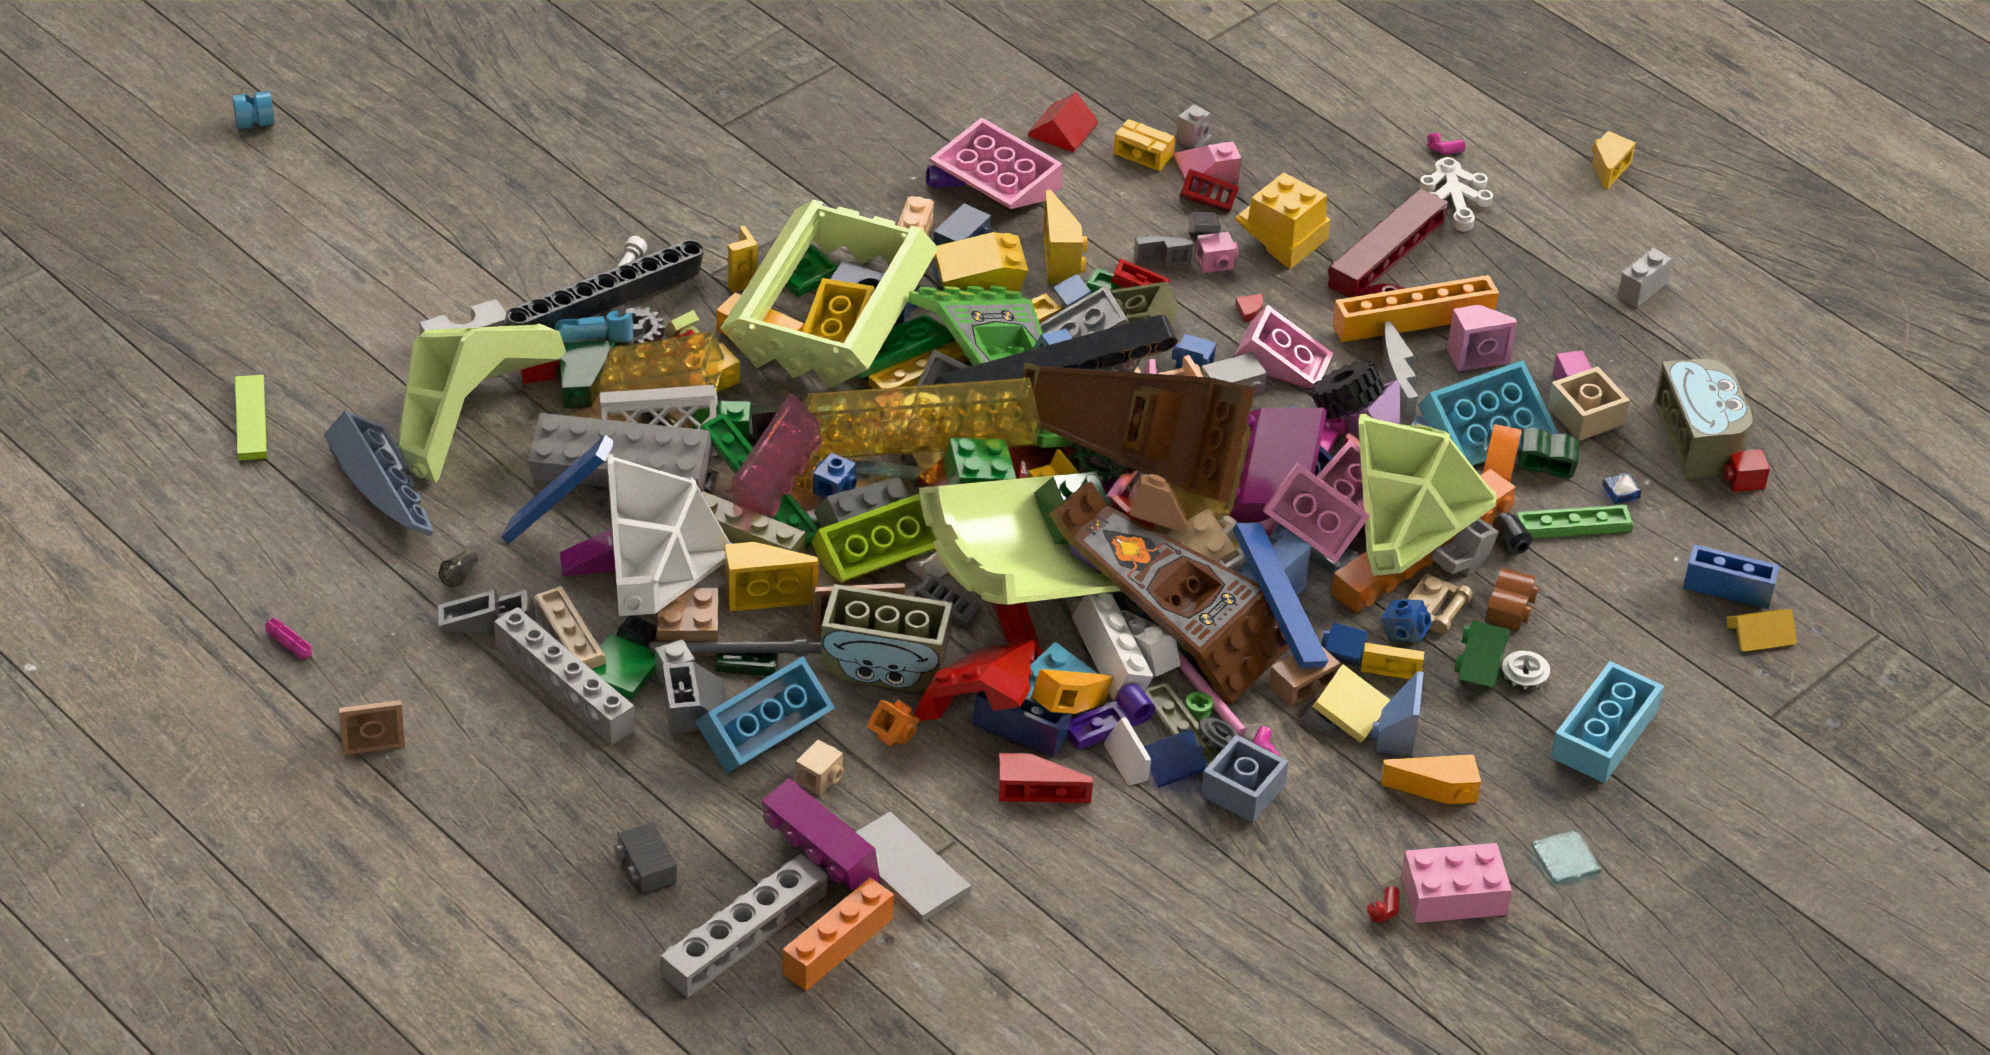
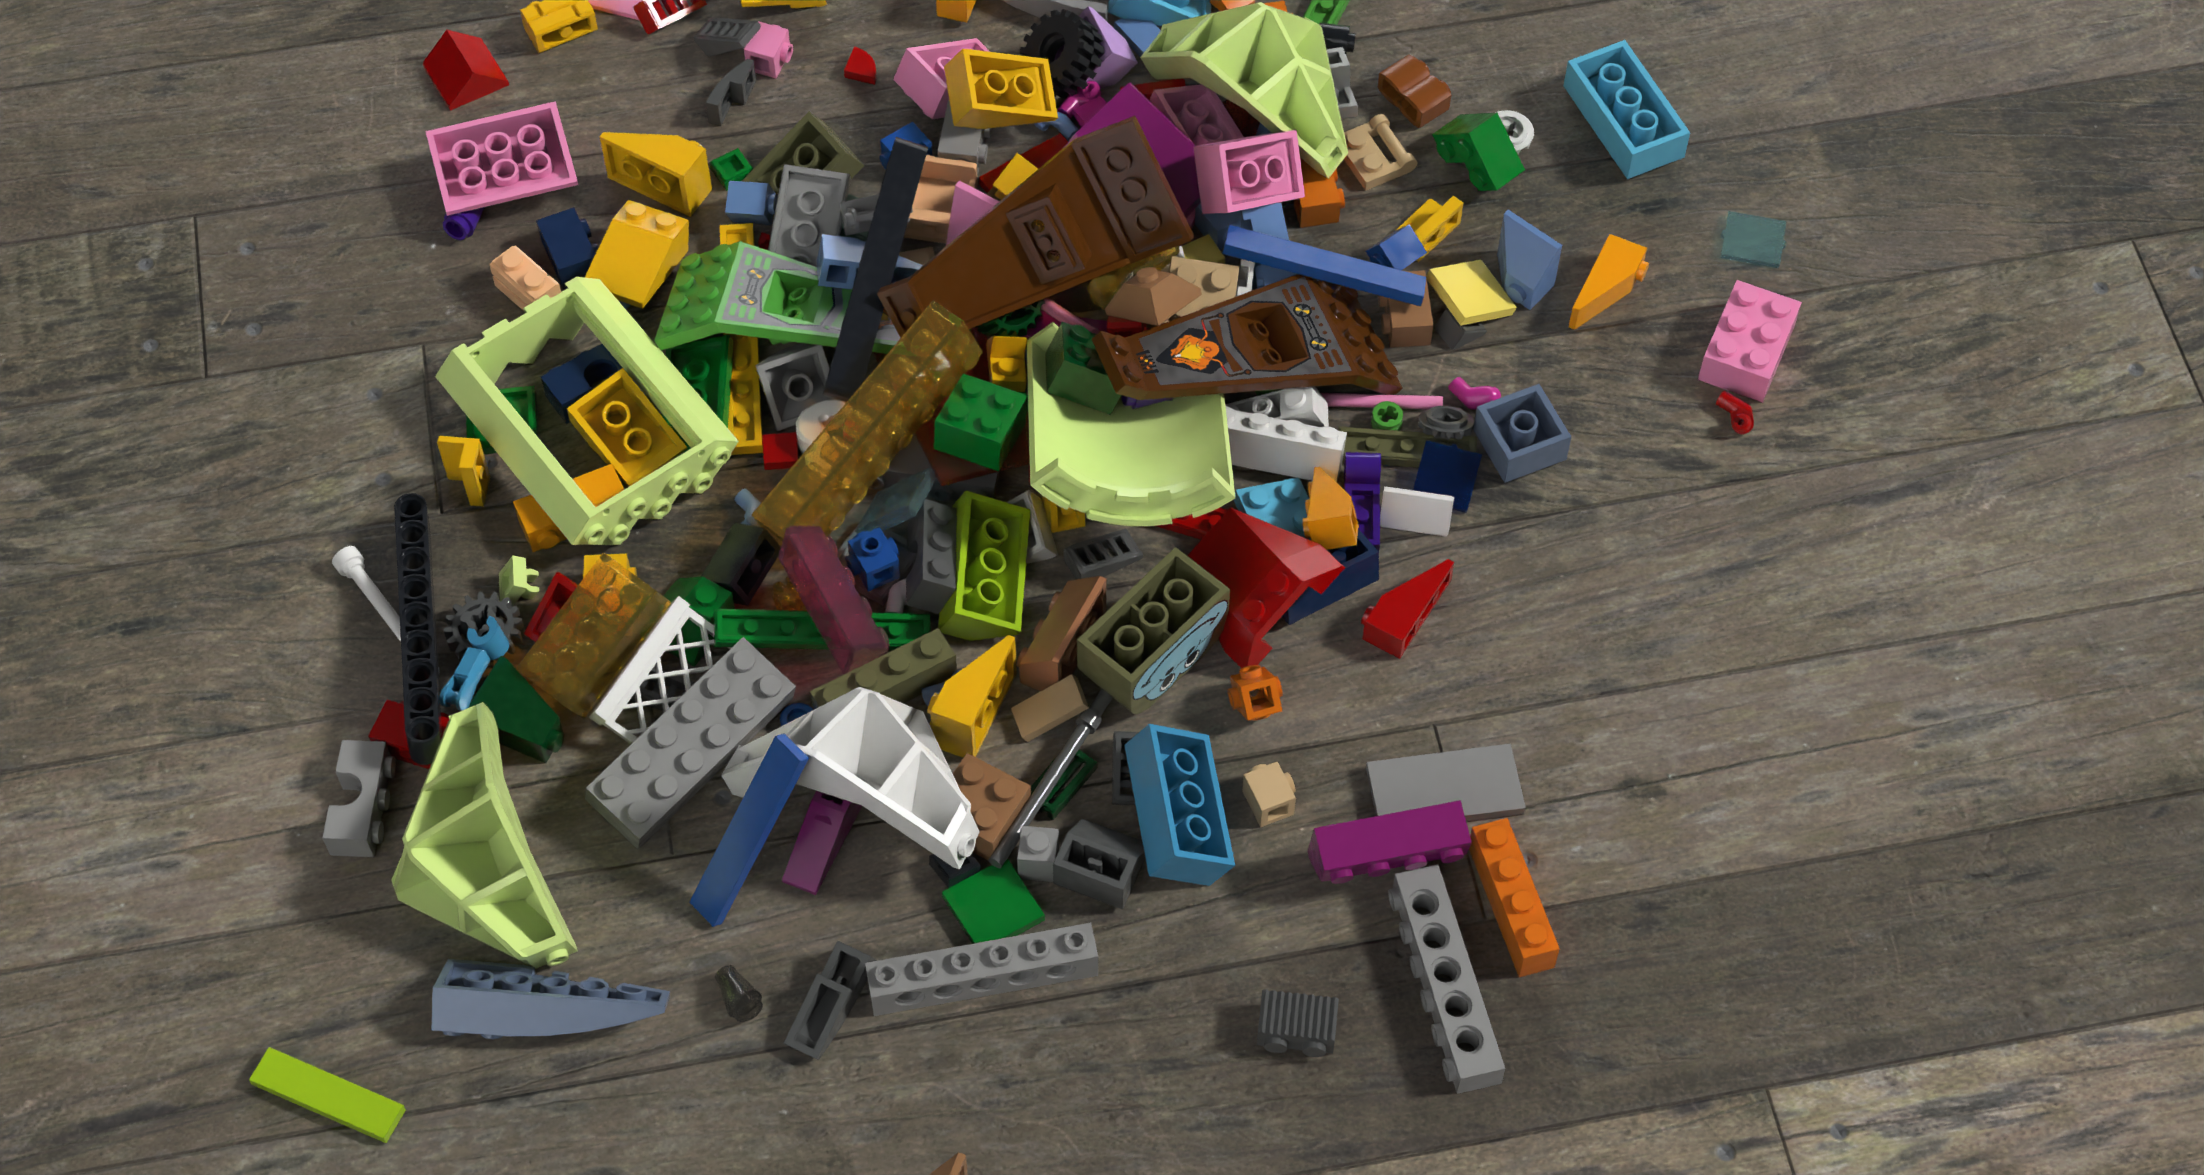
camera: 55 degrees left, 15 degrees up
(569, 626) = (907, 927): tan tile -> none
(794, 622) = (1049, 708): none -> tan tile
(1131, 275) = (759, 139): red tile -> none
(1276, 365) = (999, 89): none -> yellow slope
(1406, 620) = (1396, 185): blue brick -> none

